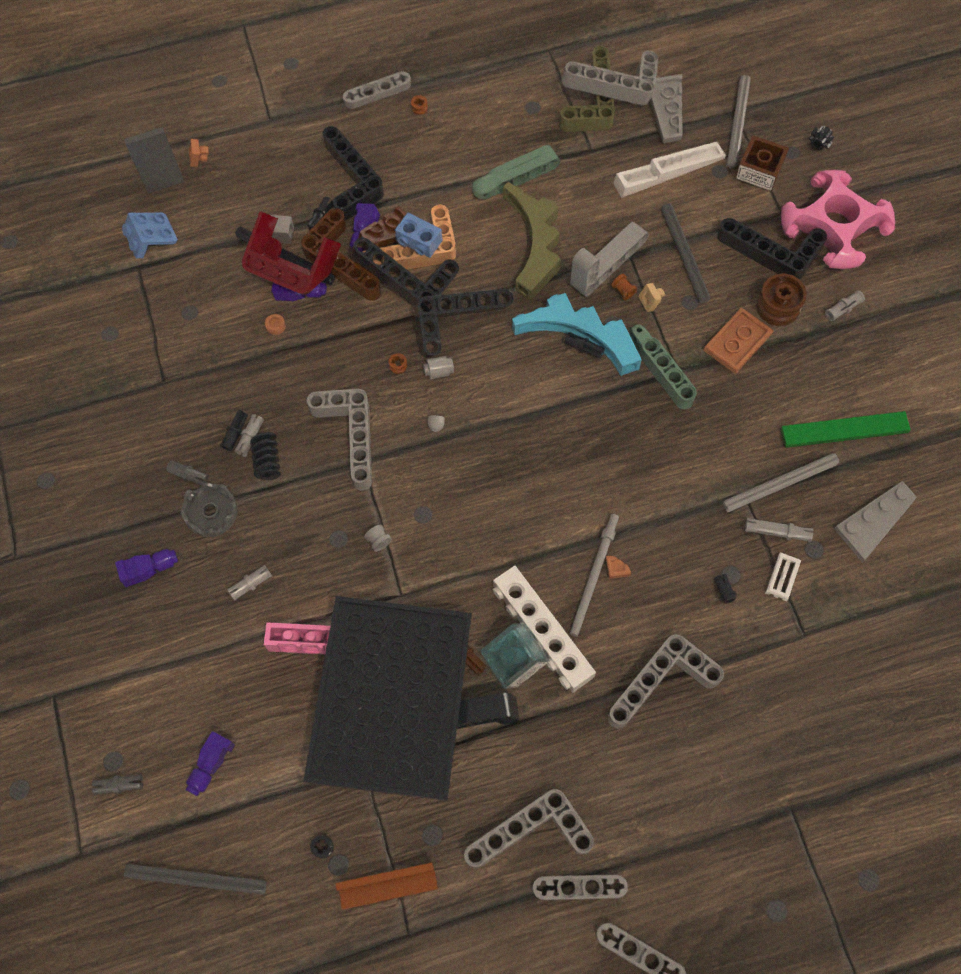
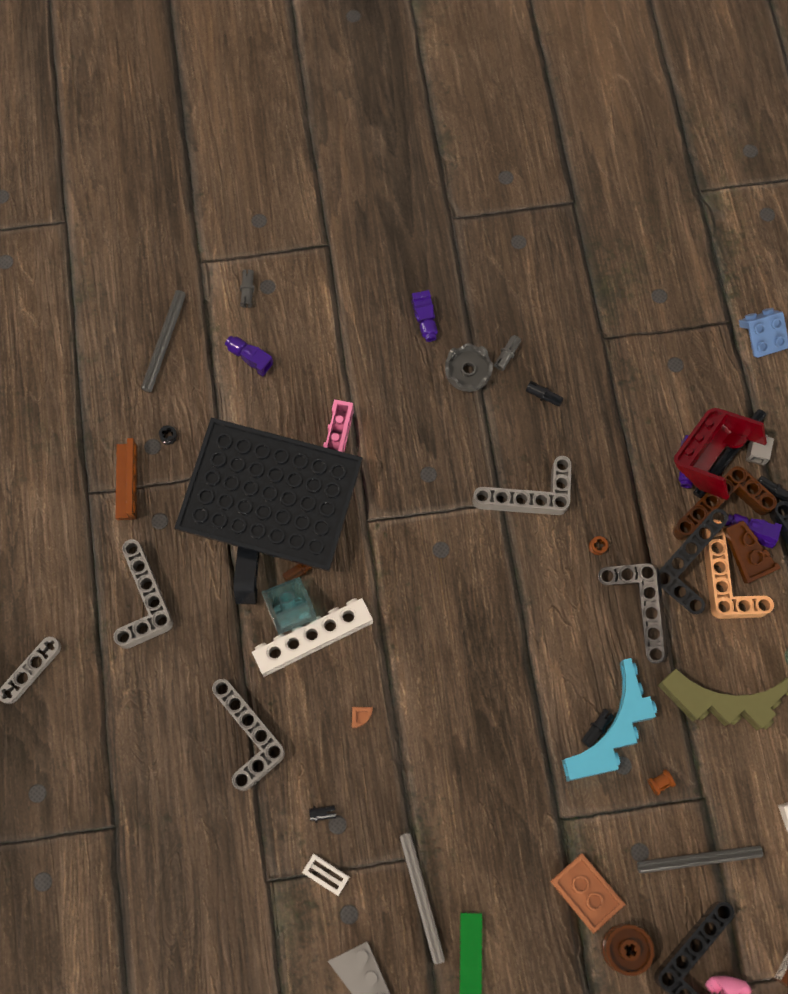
camera: 95 degrees right, 5 degrees up
(249, 582) = (398, 396): light grey pin -> none
(250, 431) = (538, 406): light grey pin -> none
(265, 456) = (512, 416): black piece -> none
(275, 324) = (653, 438): nougat tile -> none
(378, 538) = (421, 505): light grey wheel -> none
(420, 233) = (735, 579): medium blue brick -> none
(436, 422) = (529, 571): light grey hinge -> none
(438, 367) = (588, 582): light grey brick -> none
(580, 891) = (95, 631): light grey beam -> none
(591, 271) = (694, 770): light grey beam -> none
(607, 536) = (392, 713): light grey bar -> none
(651, 297) = (646, 808): tan tile -> none
(663, 374) = (594, 789): sand green piece -> none
(782, 530) = (372, 881): light grey pin -> none

